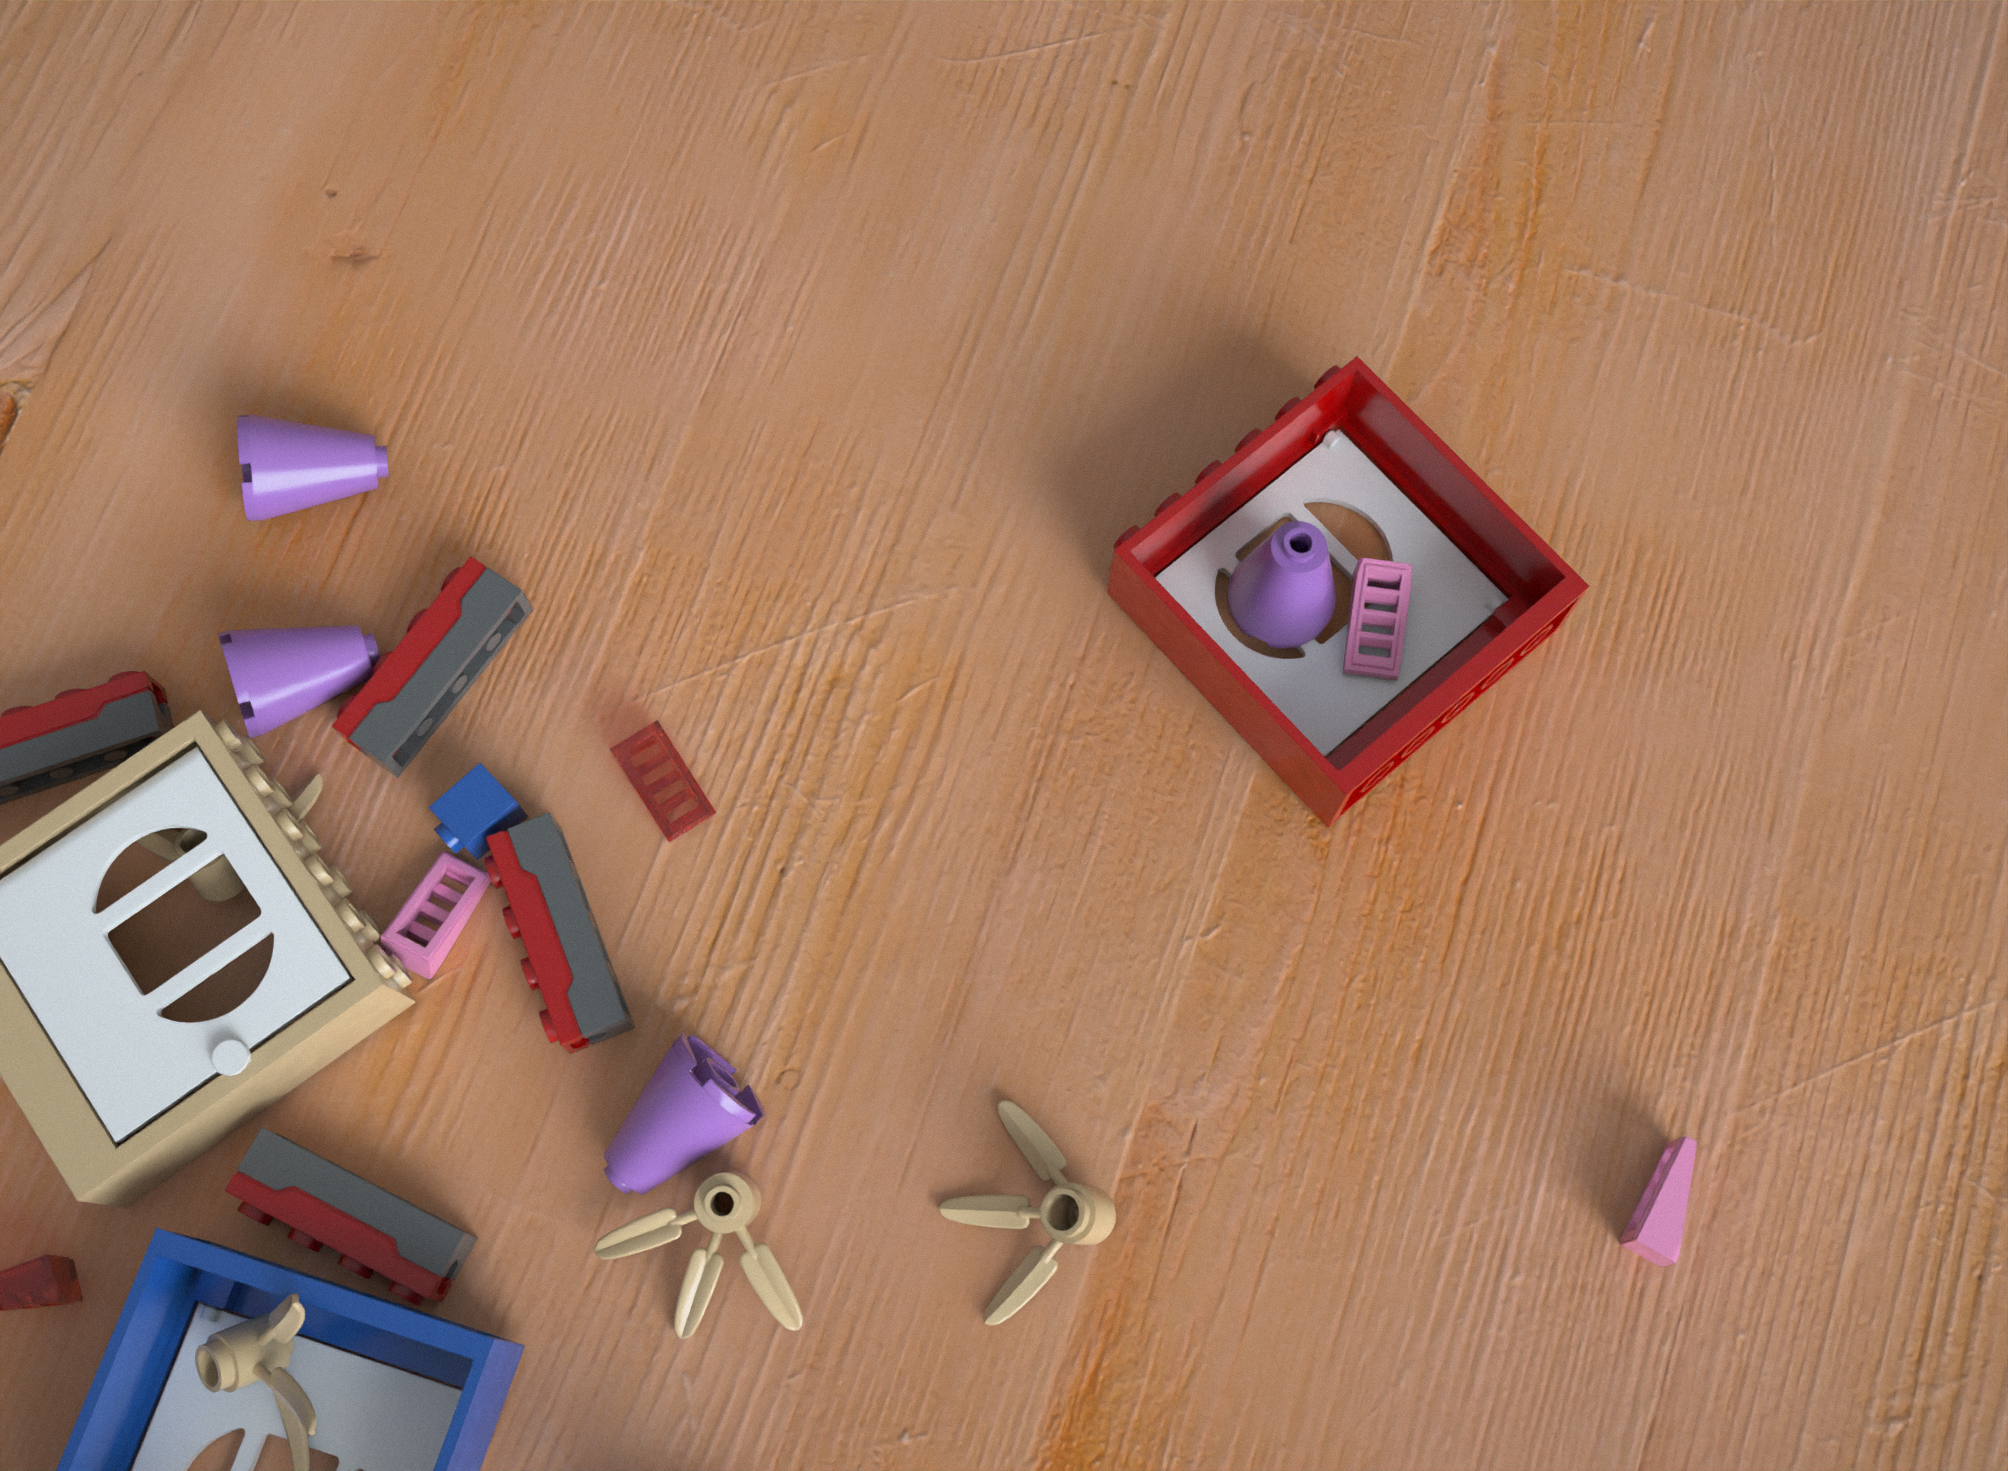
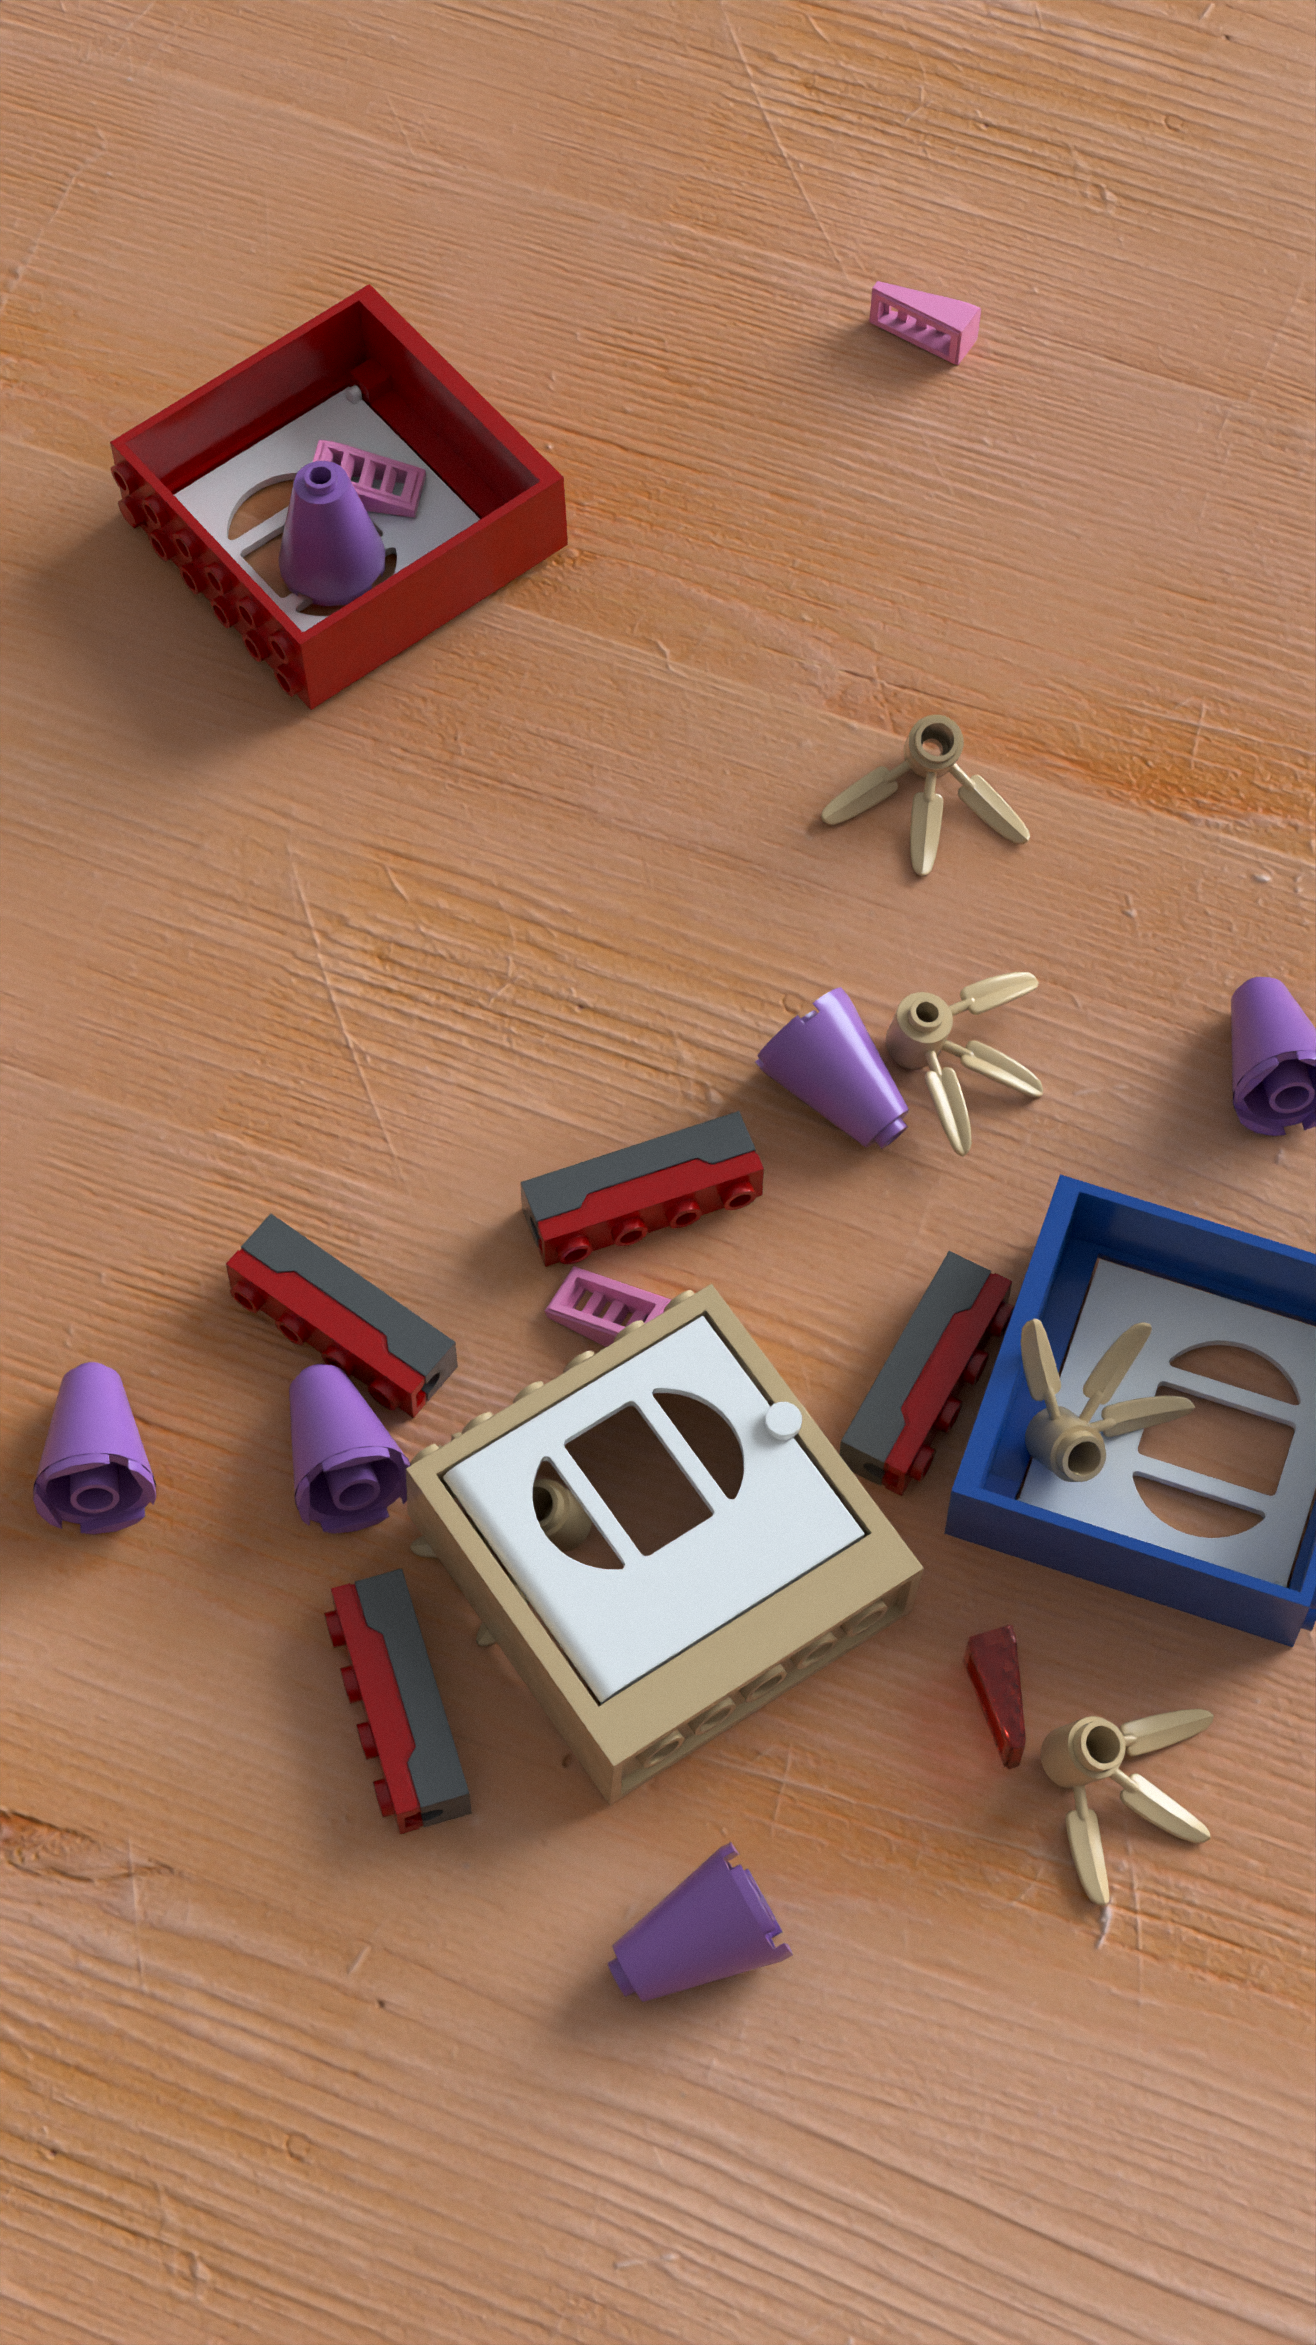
camera: 90 degrees left, 10 degrees down
(475, 810) = (509, 1268): blue brick -> none
(640, 742) = (451, 1126): clear red slope -> none

